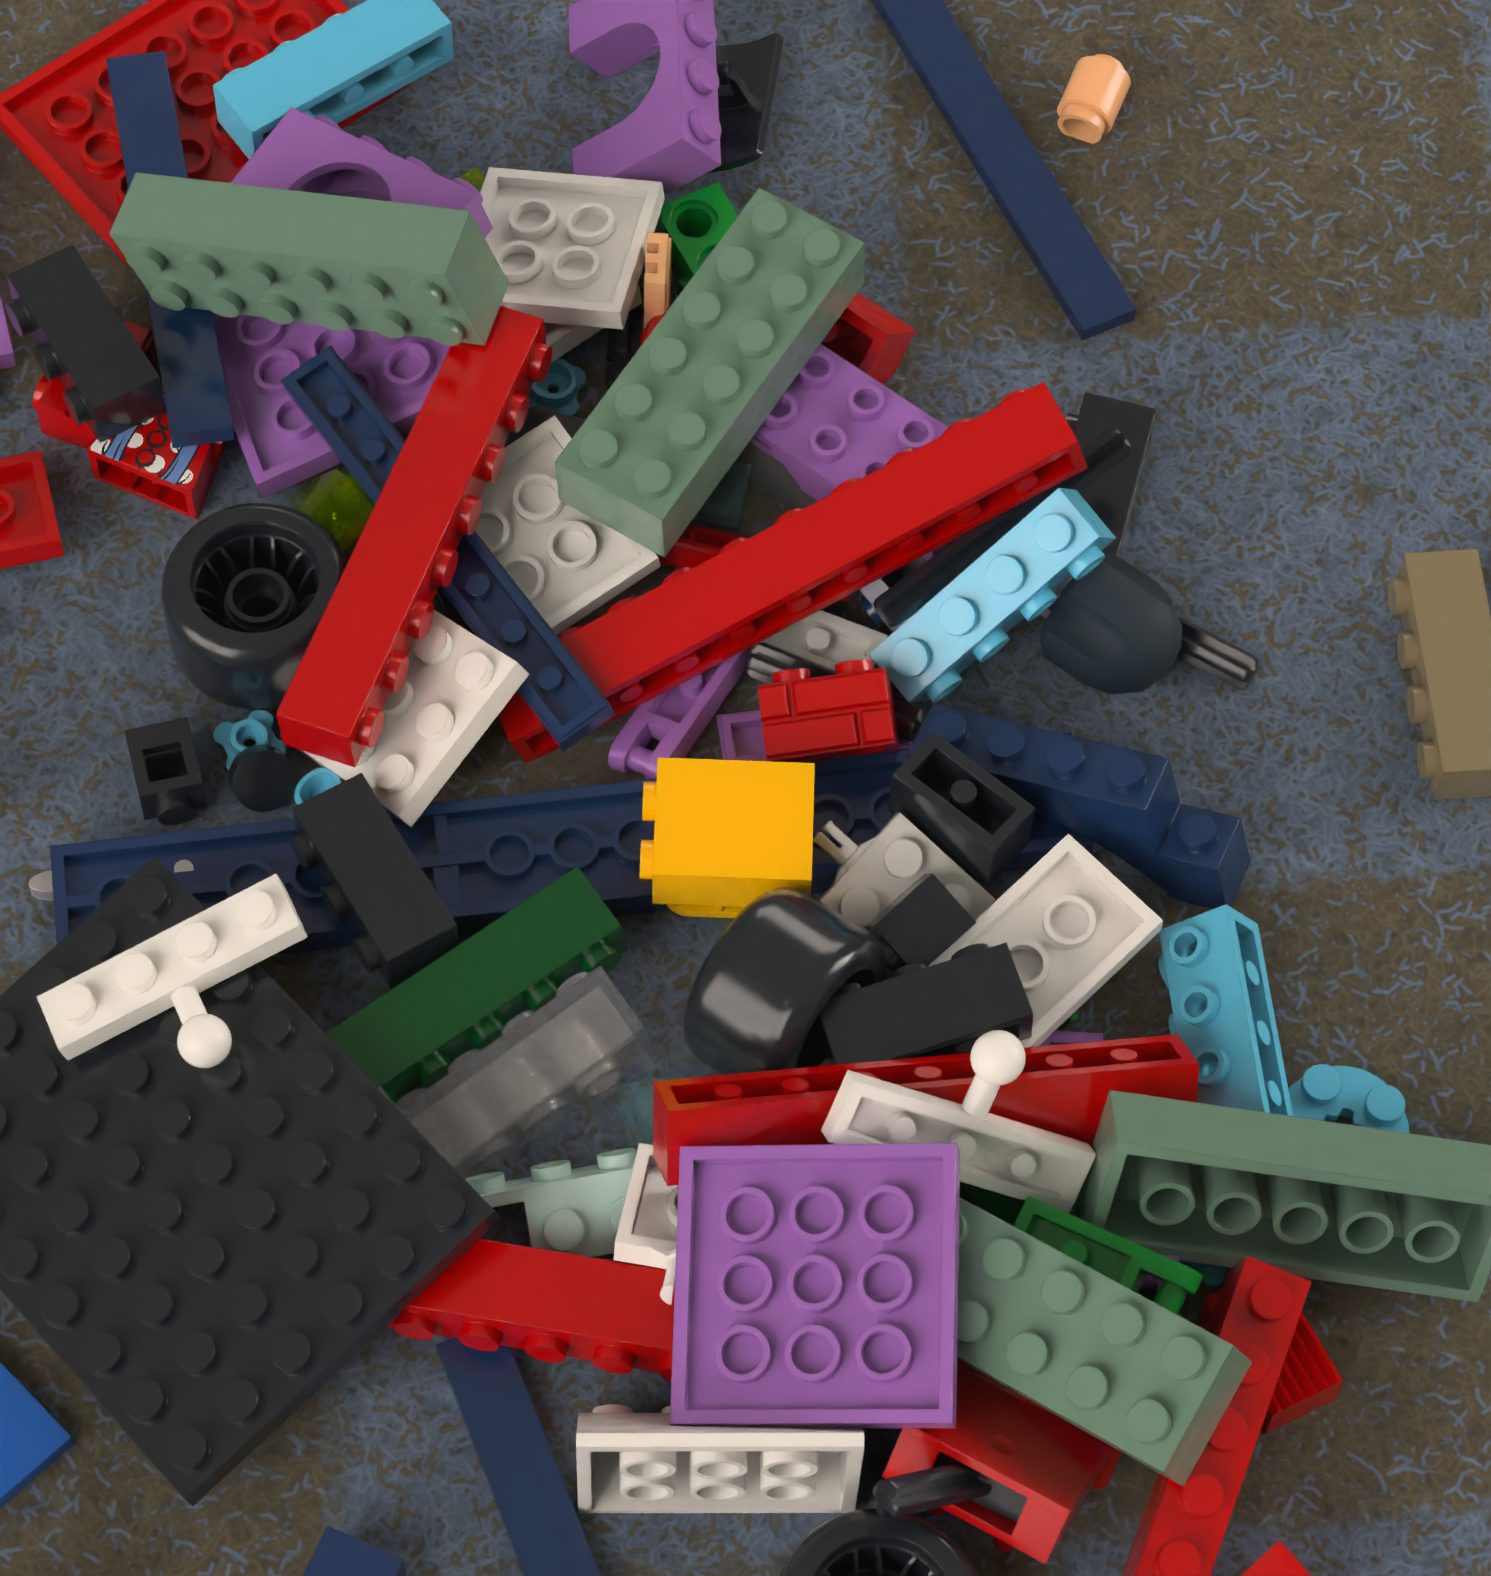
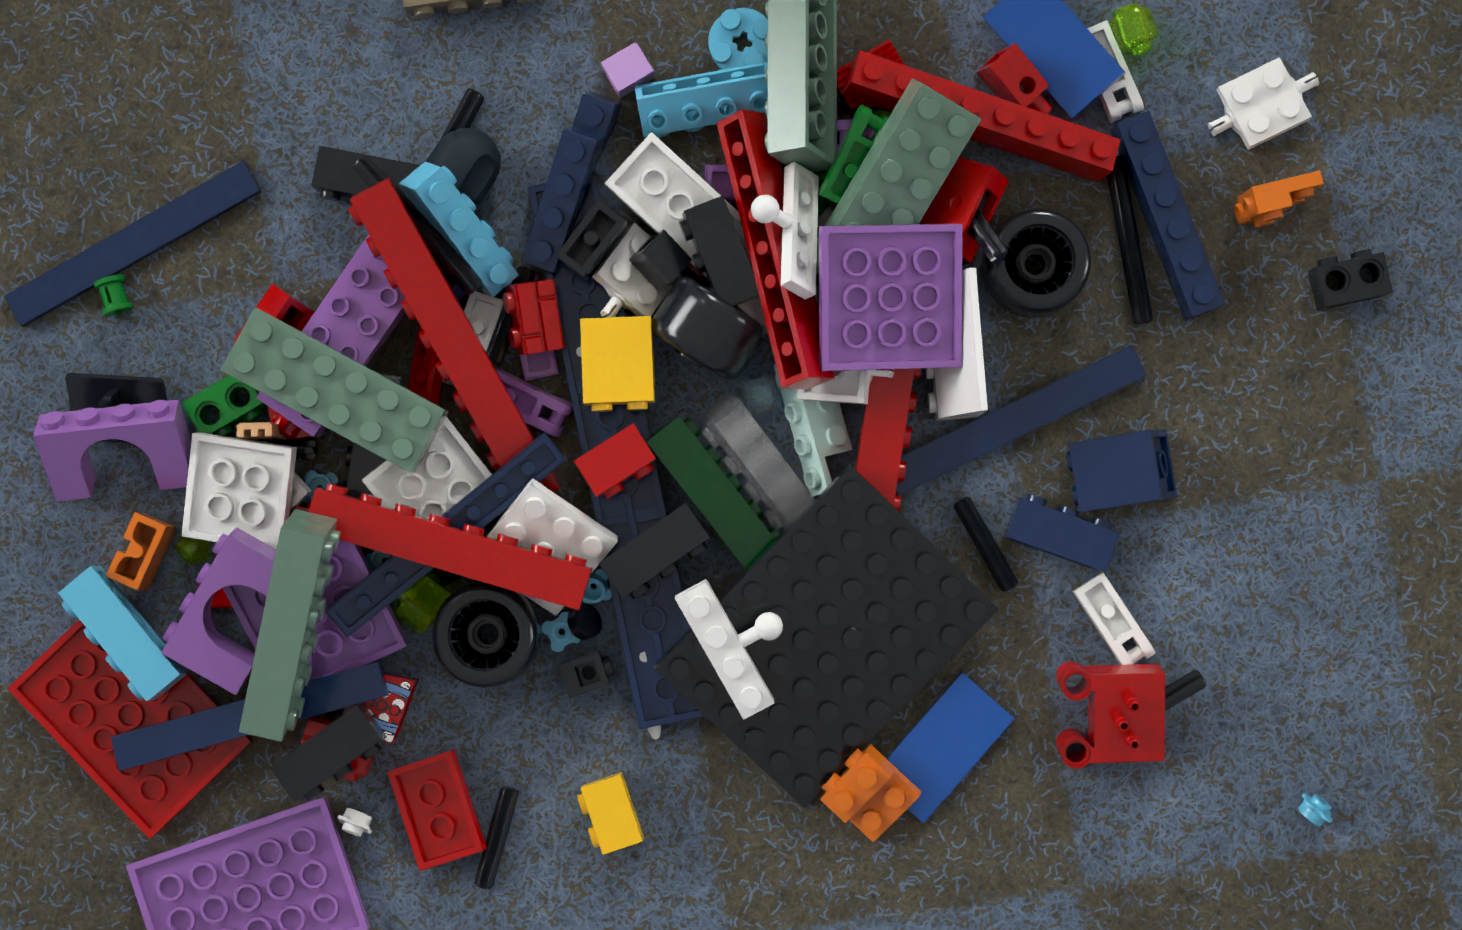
camera: 85 degrees left, 25 degrees up
(321, 1505) = (985, 544): none -> black axle
(468, 120) = (145, 552): none -> orange brick
(545, 819) = (616, 461): none -> red brick
(911, 110) = (113, 295): none -> green bush
(1093, 98) = (96, 189): light nougat brick -> none
(1287, 914) = (627, 69): none -> lavender panel

